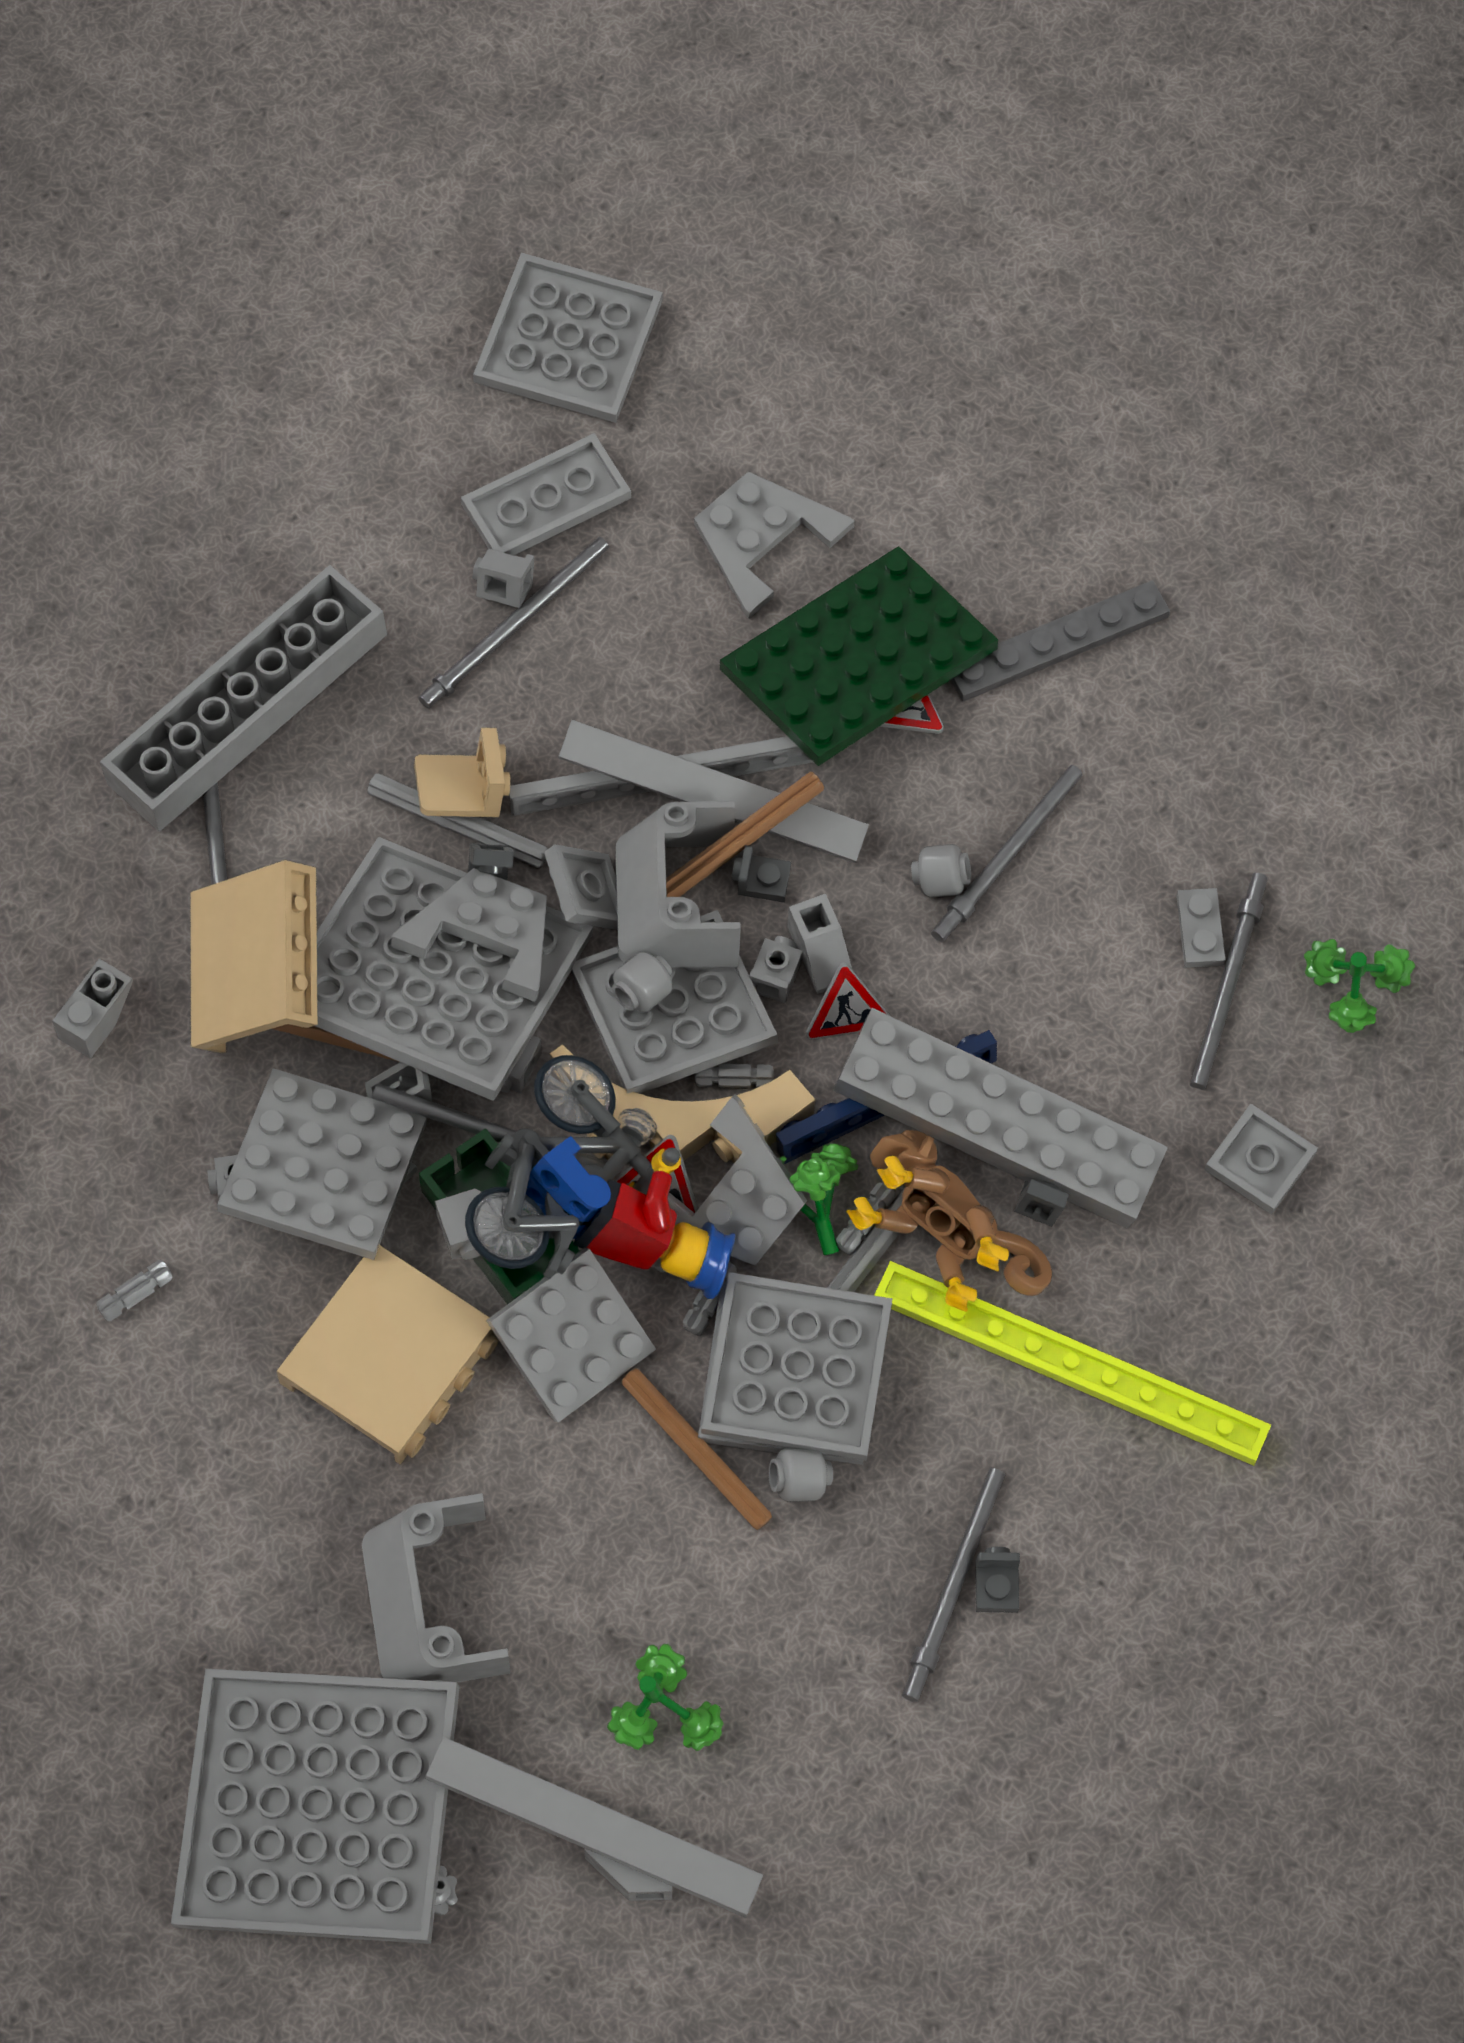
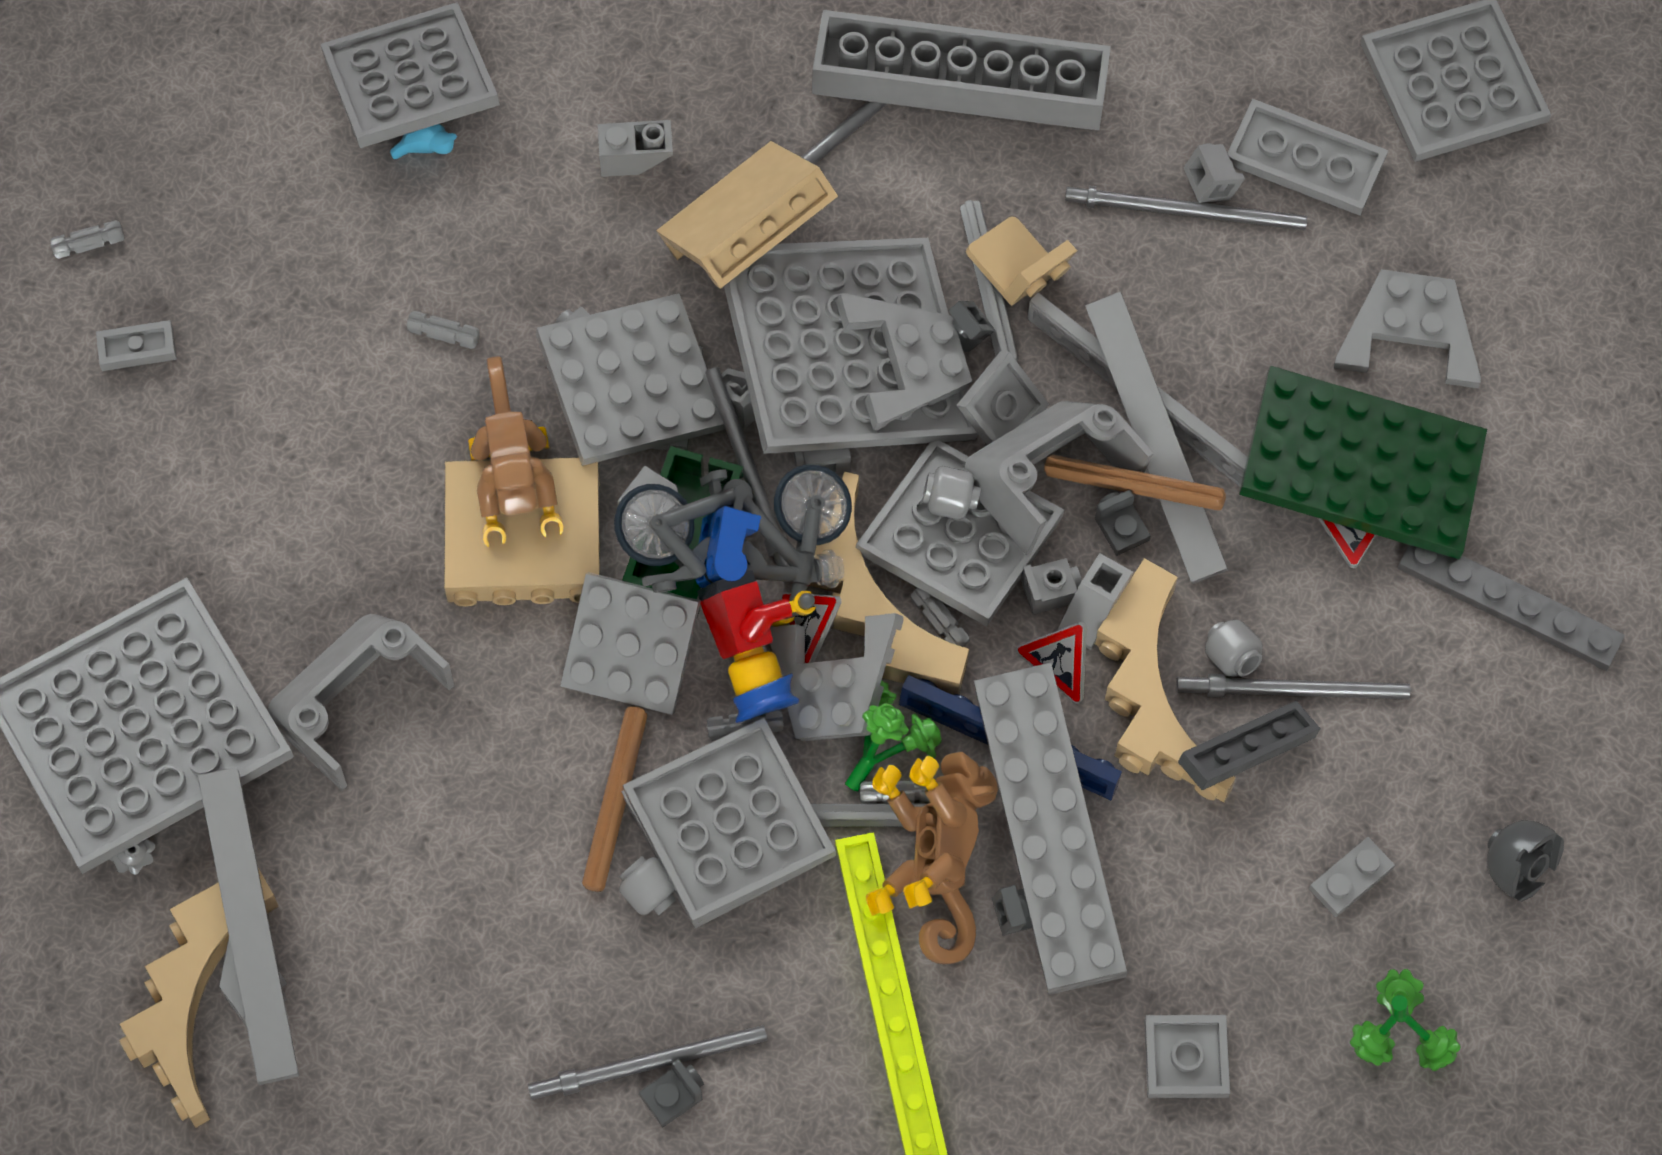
camera: 55 degrees right, 0 degrees up
(328, 1305) = (513, 474): none -> medium nougat animal
(591, 1929) = (179, 980): none -> tan arch
(661, 1670) = (362, 901): bright green plant -> none
(922, 968) = (1137, 688): none -> tan arch
(1041, 918) = (1248, 745): none -> dark grey plate
(1248, 914) = (1395, 905): flat silver bar -> none
(1282, 790) = (1521, 856): none -> dark grey cylinder

